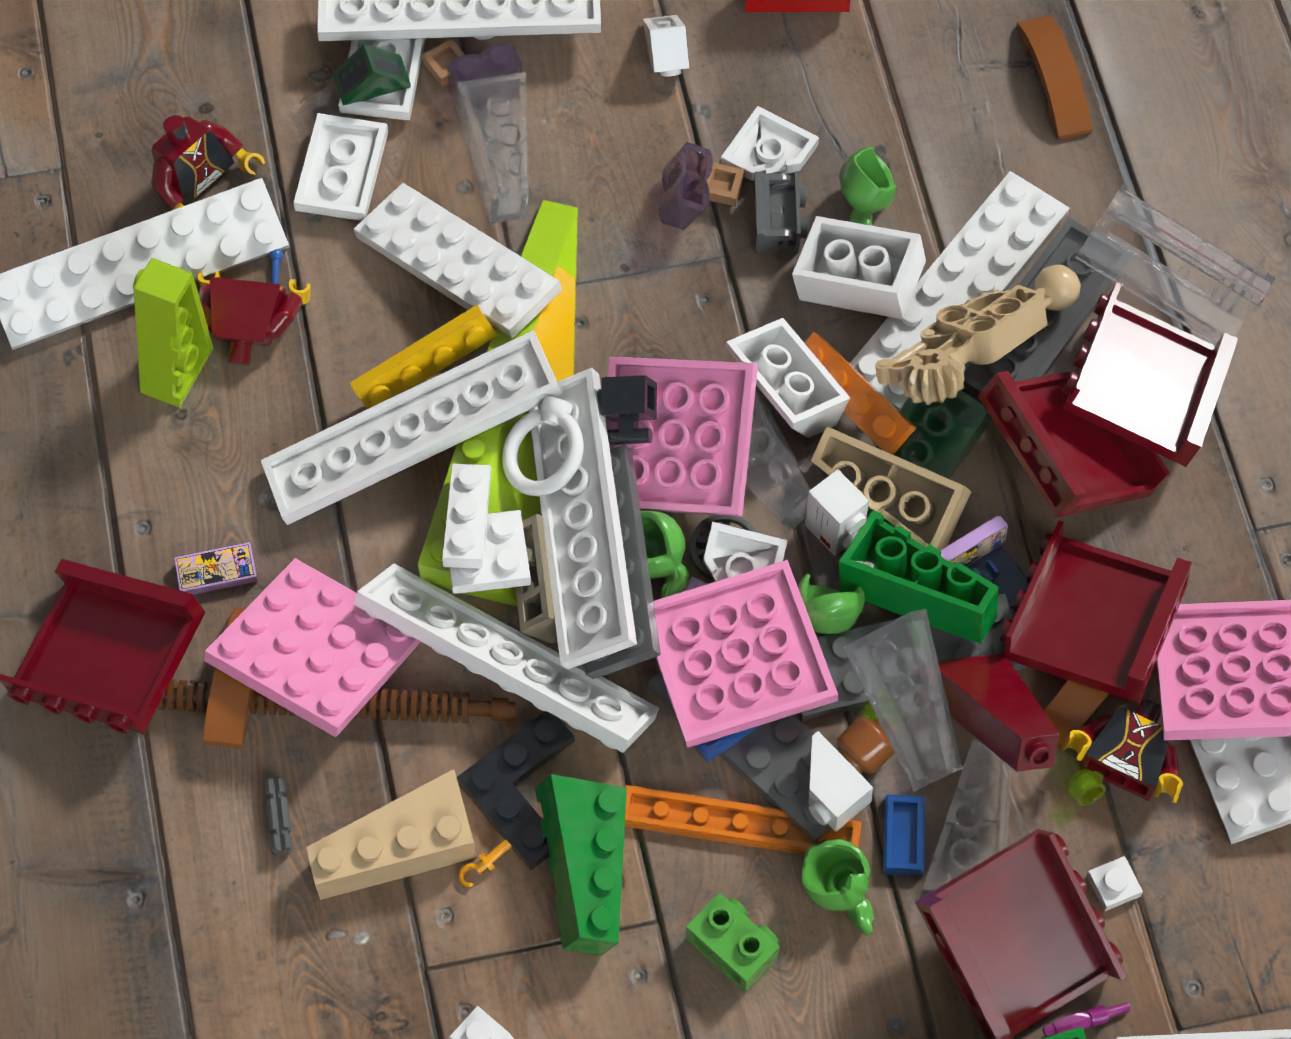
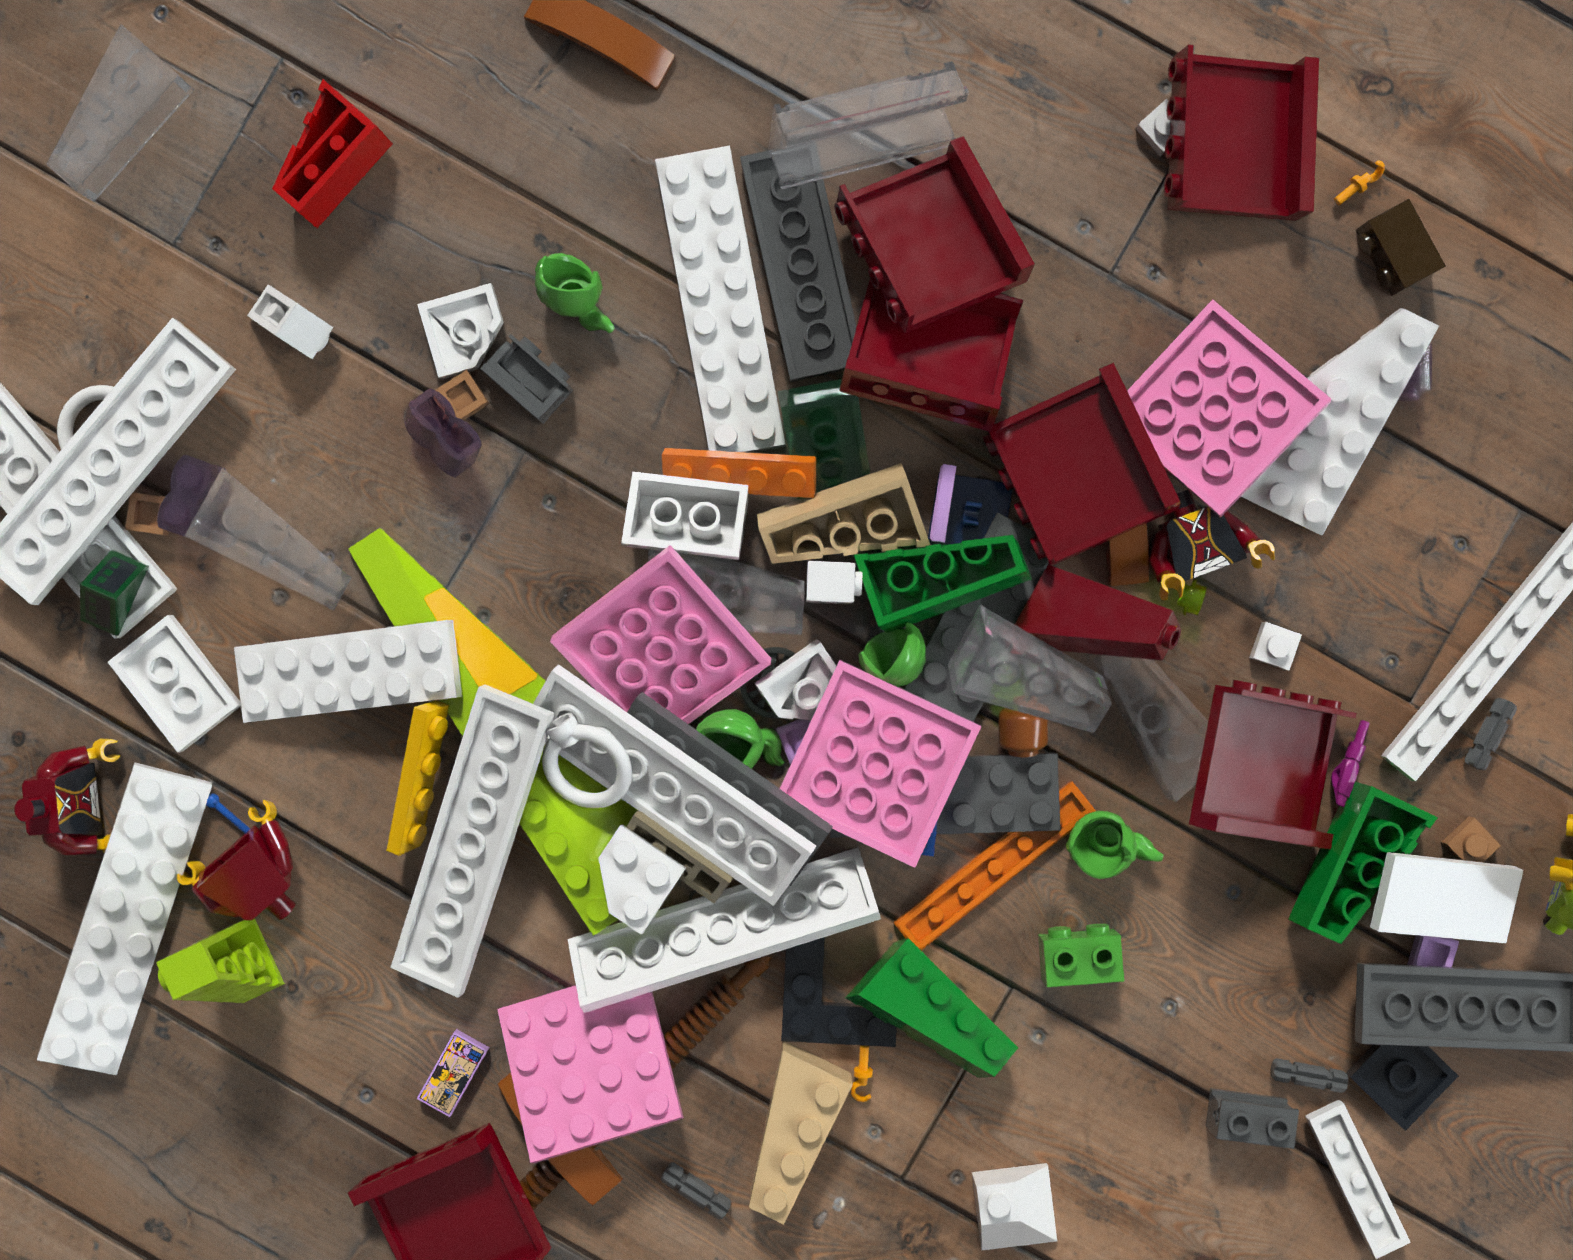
camera: 45 degrees left, 25 degrees up
(467, 516) = (593, 875): white plate -> none
(628, 402) = (608, 666): black brick -> none
(835, 786) = (1043, 791): white slope -> none
(859, 267) = (640, 367): white brick -> none
(904, 835) = (1108, 761): blue tile -> none
(976, 333) = (784, 339): tan arm -> none

